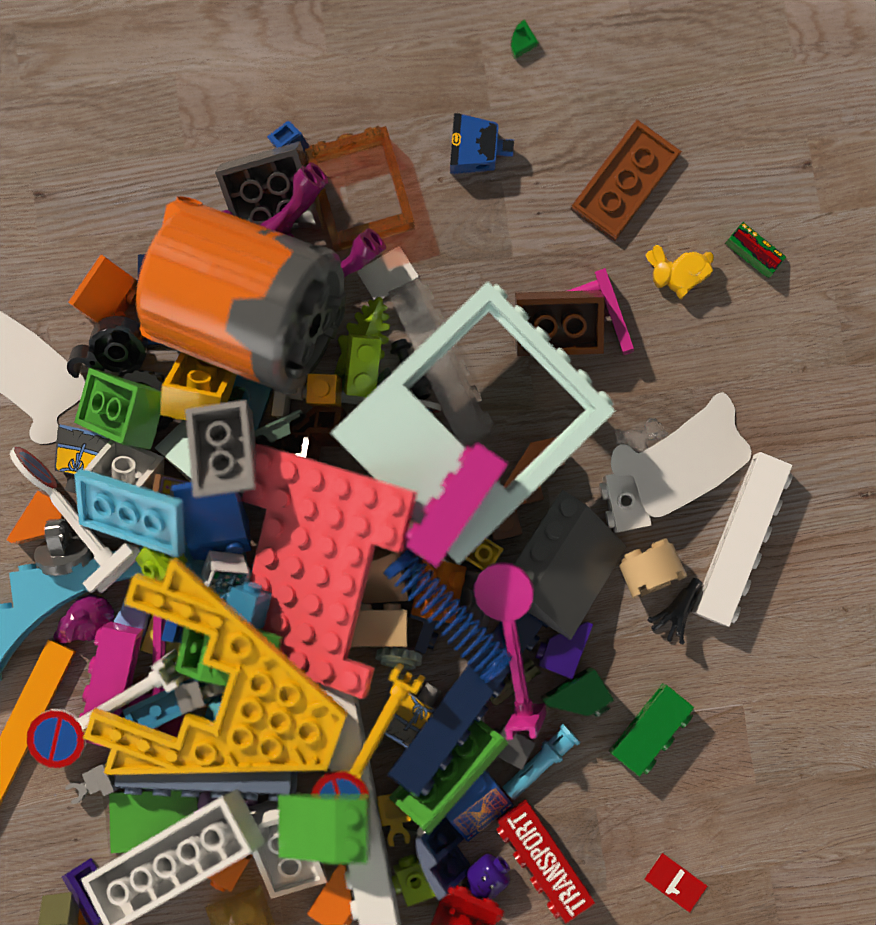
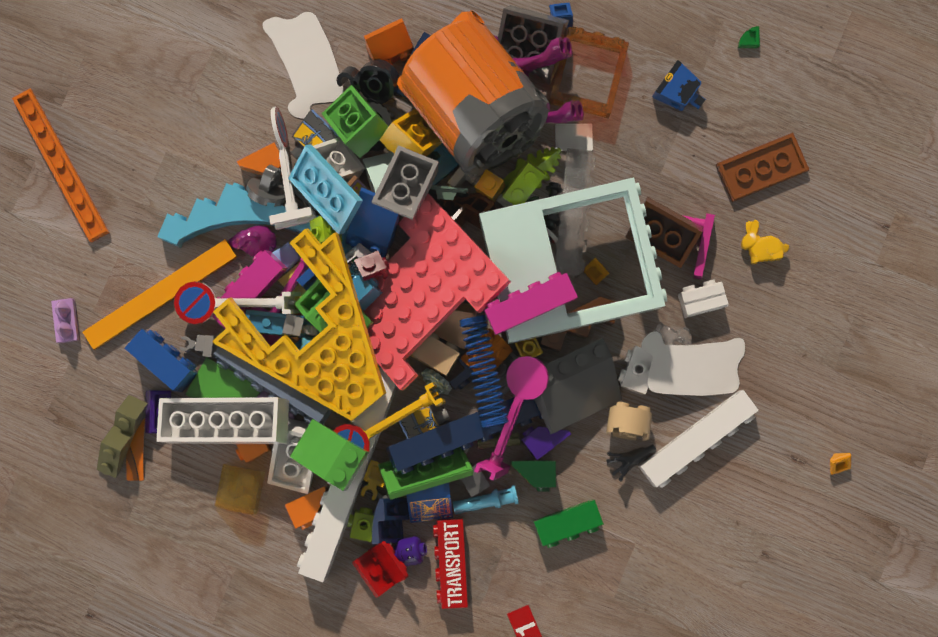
camera: 25 degrees right, 0 degrees up
(57, 830) = (162, 359): none -> blue brick
(240, 571) = (372, 266): none -> bracket
(507, 415) = (596, 271): none -> light orange slope
(650, 373) = (702, 299): none -> white brick
(755, 250) = (819, 261): slope -> none

